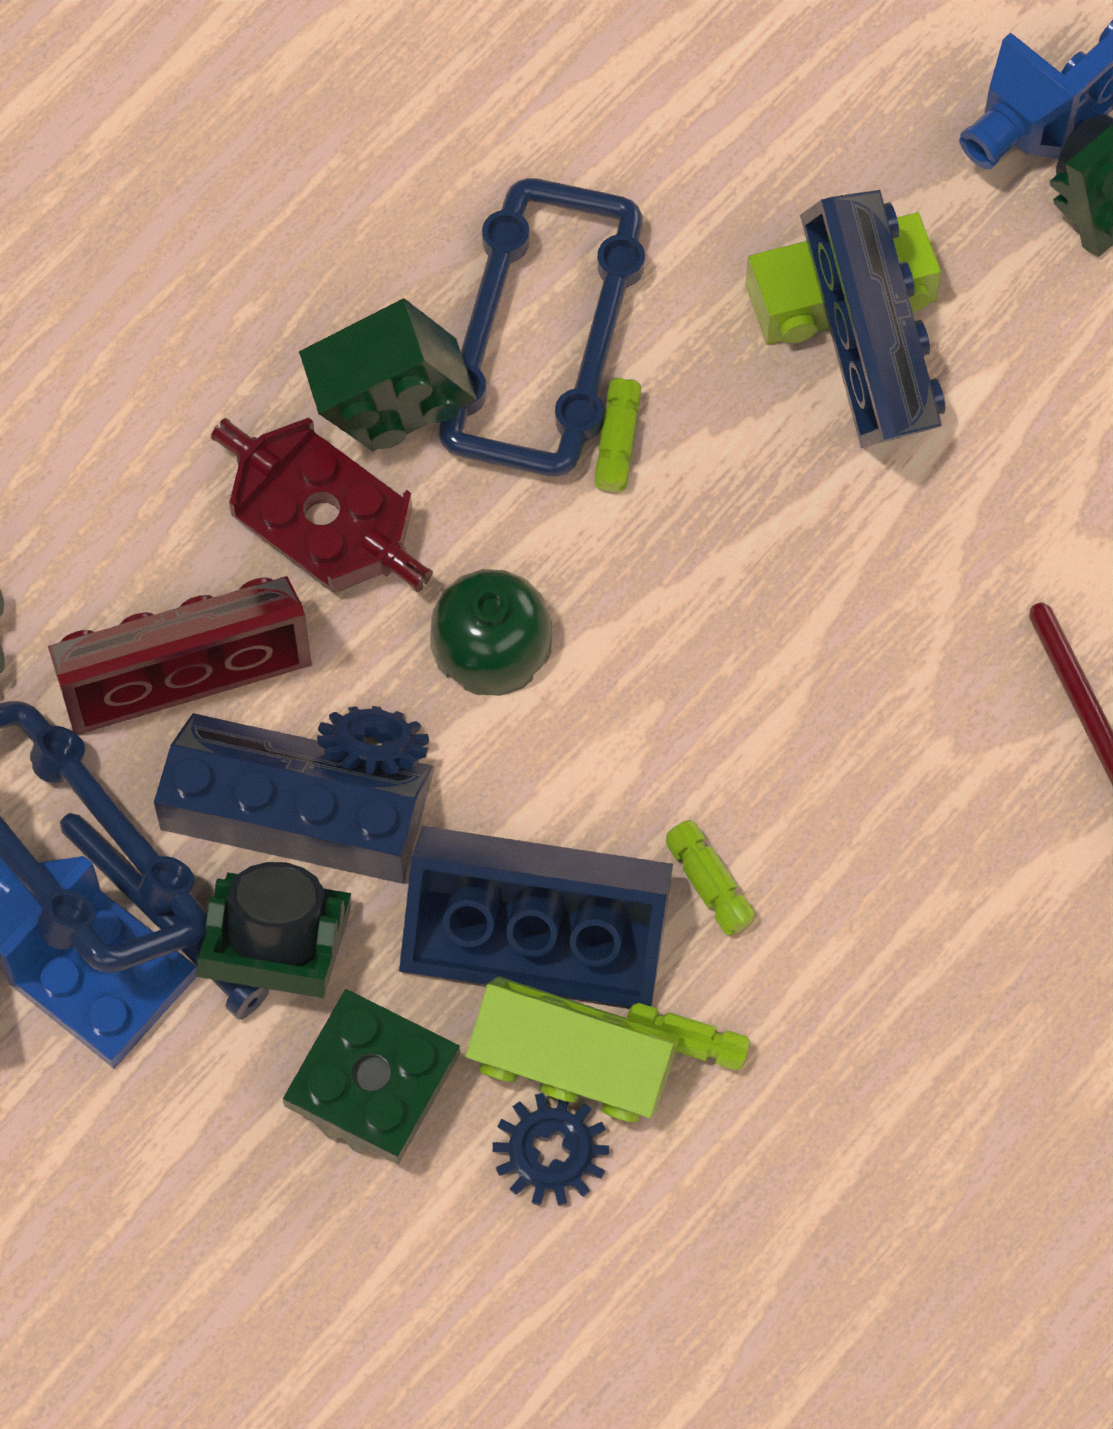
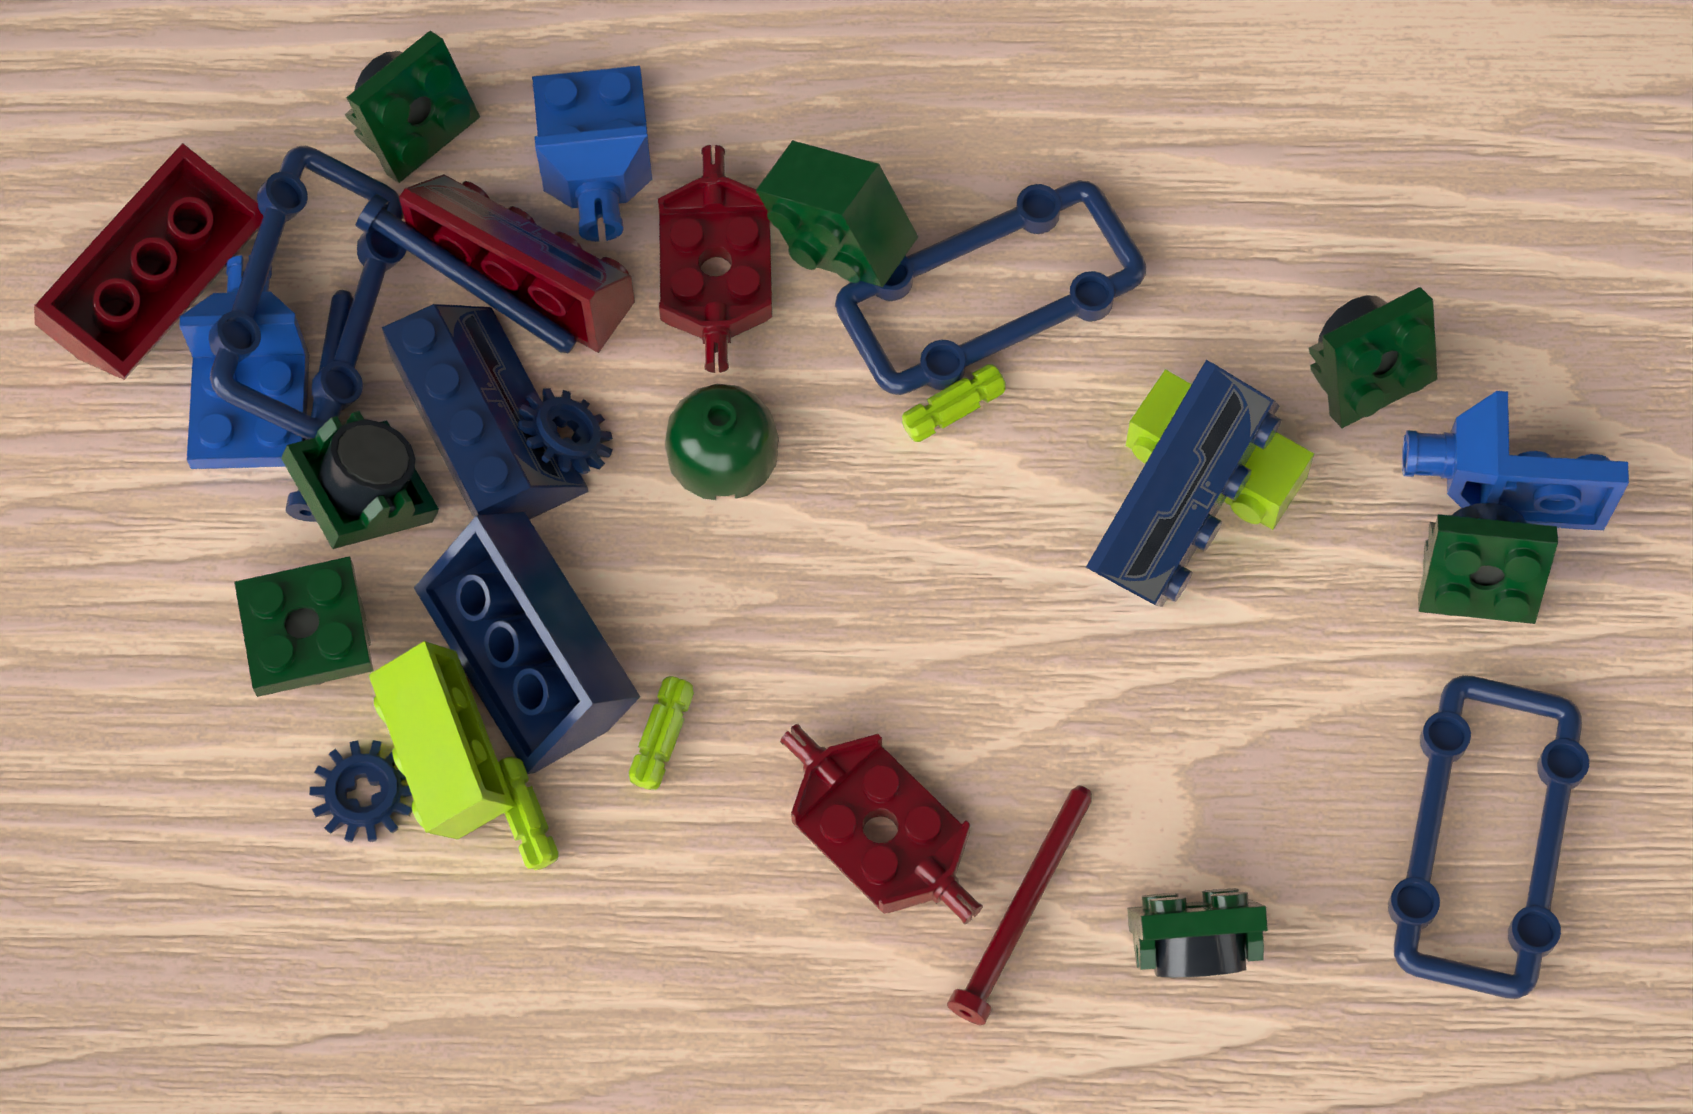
camera: 50 degrees right, 0 degrees up
(41, 727) = (377, 217): none -> dark blue bar
(117, 515) = (593, 143): none -> blue plate
(870, 102) = (1375, 353): none -> dark green piece
(985, 754) = (864, 781): none -> dark red plate

